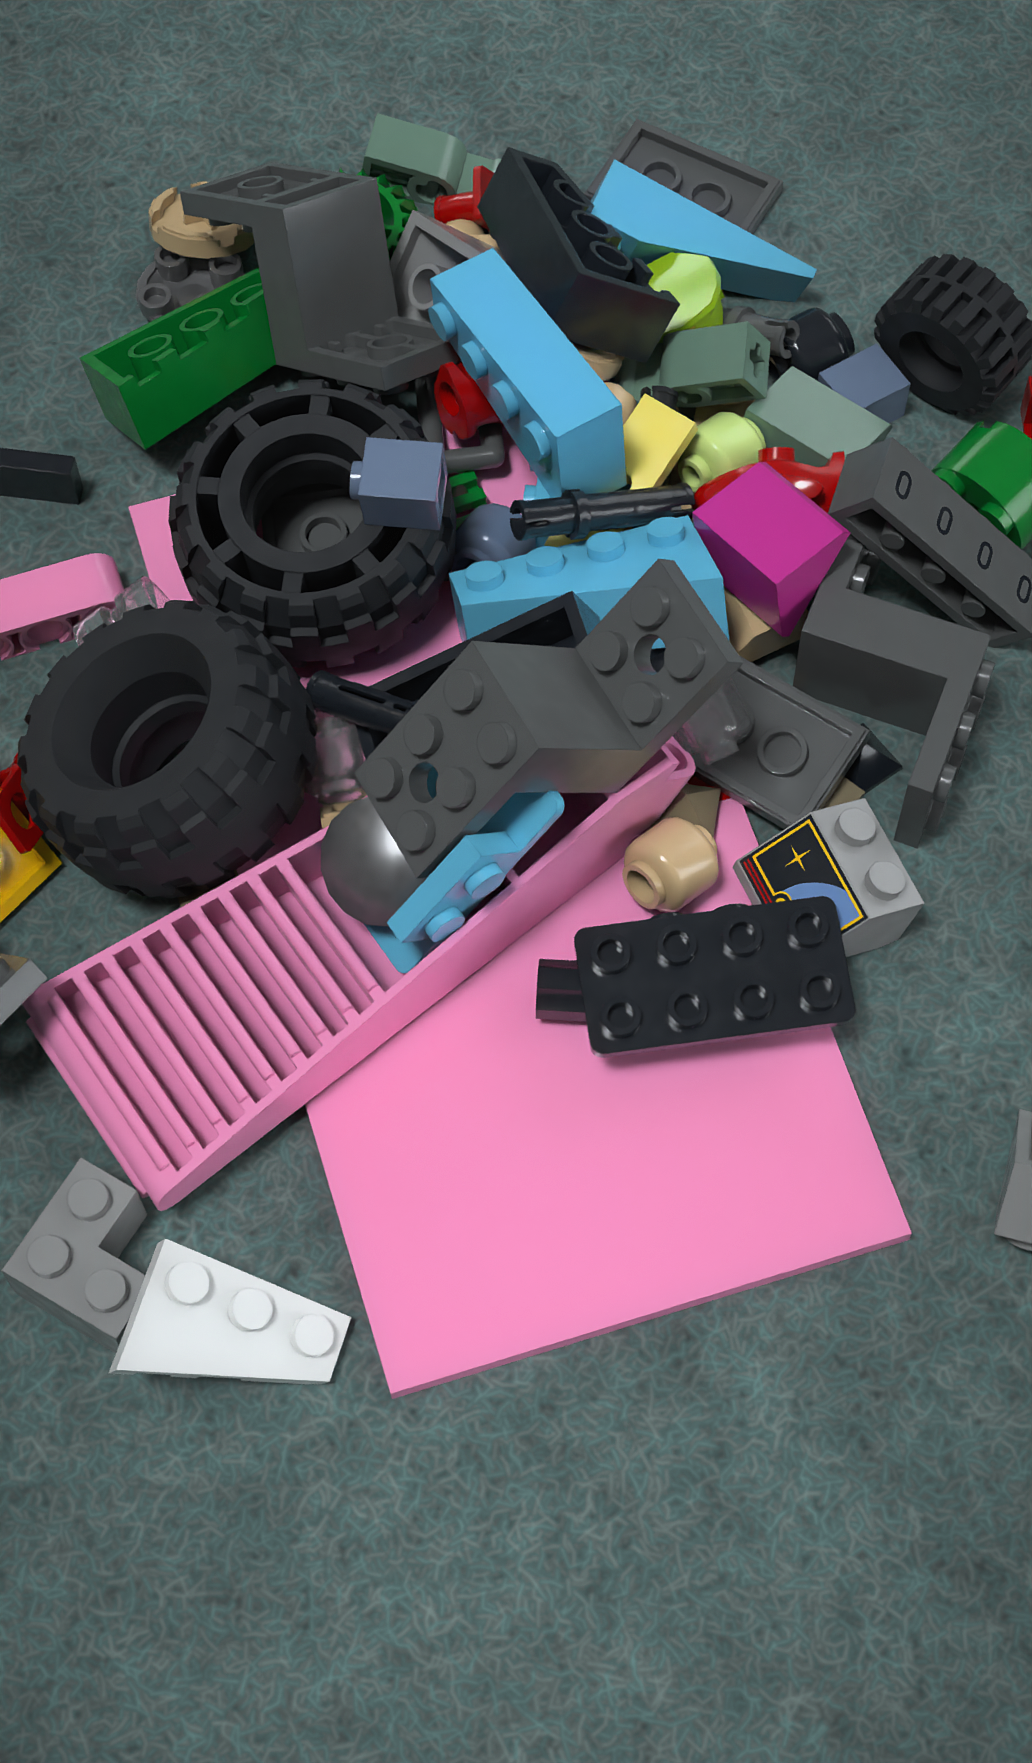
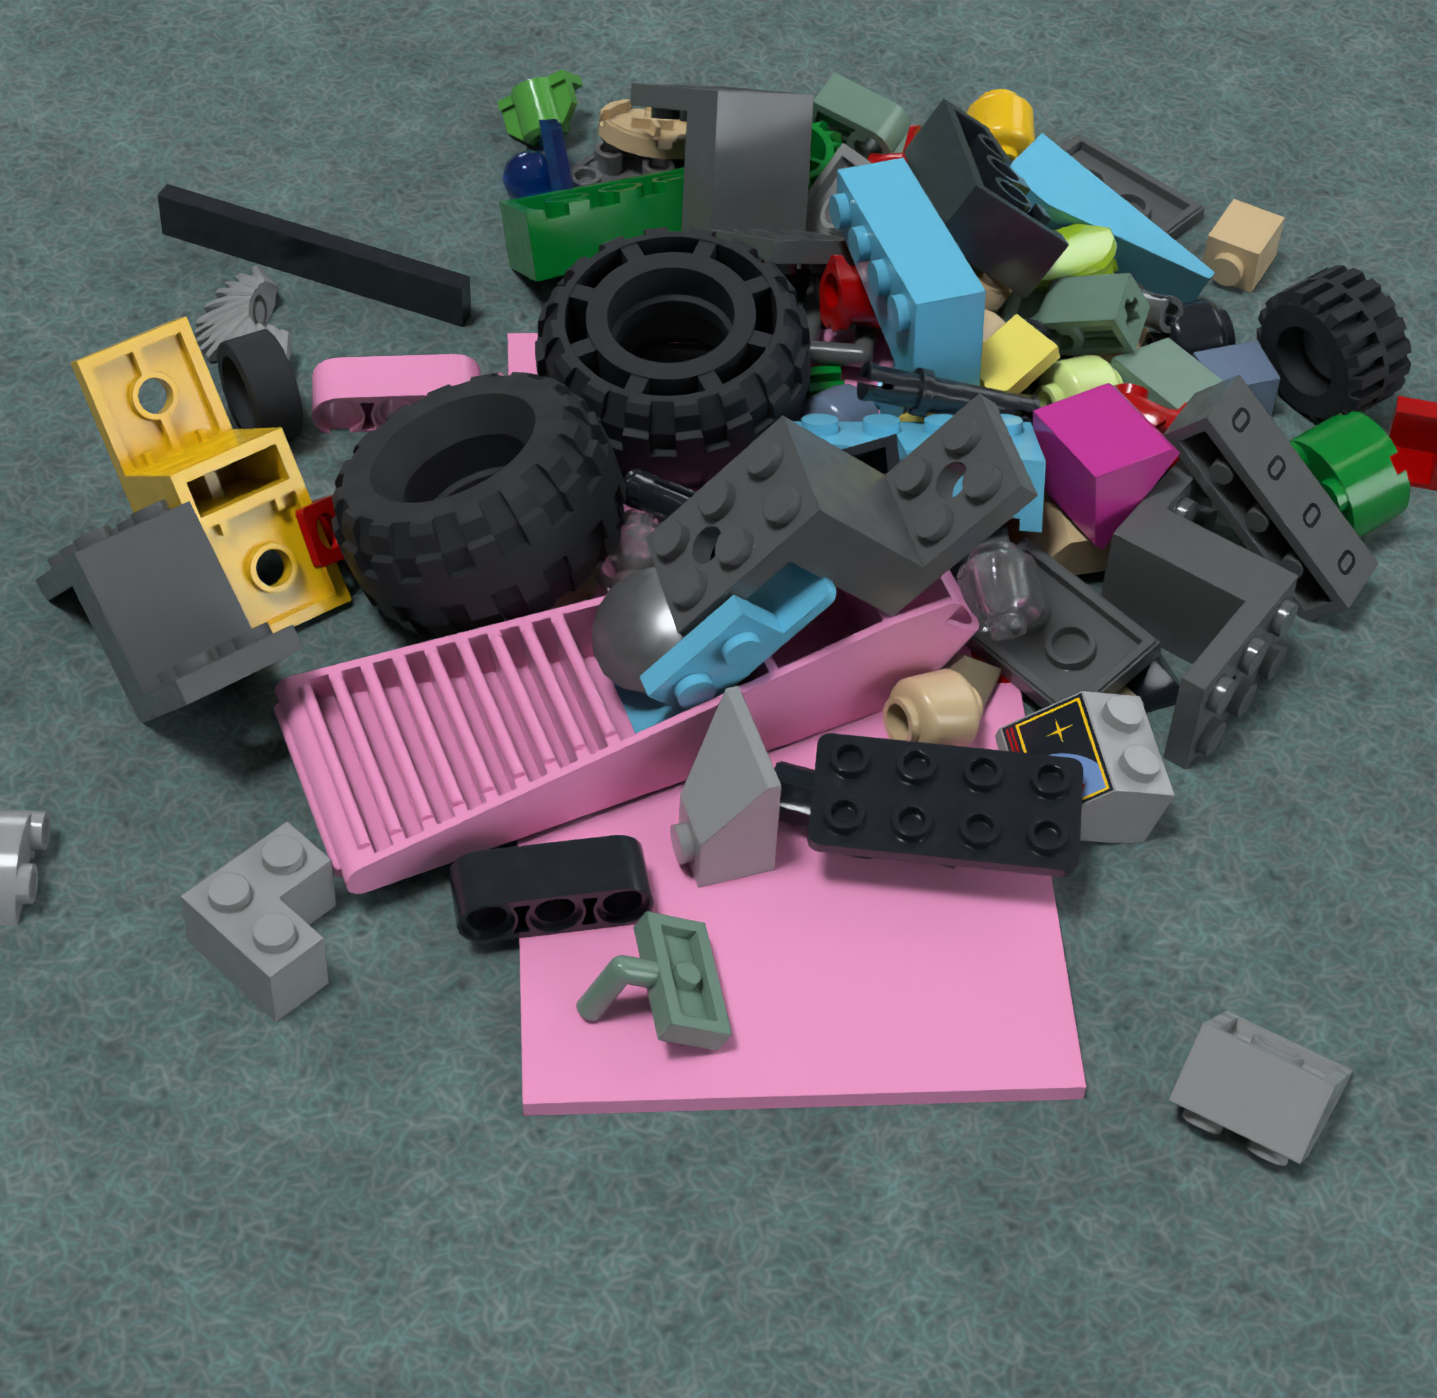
camera: 10 degrees right, 15 degrees down
(87, 222) = (540, 100): none -> bright green piece
(112, 302) = (541, 171): none -> clear blue tile
(224, 1323) = (375, 990): white wing -> none
(354, 1158) = (550, 888): none -> black beam
(400, 483) = (760, 316): sand blue brick -> none
(504, 1022) = (729, 800): none -> light grey slope
(504, 1228) = (679, 981): none -> sand green plate
(560, 132) = (1008, 119): none -> yellow head
(832, 223) = (1242, 245): none -> tan brick

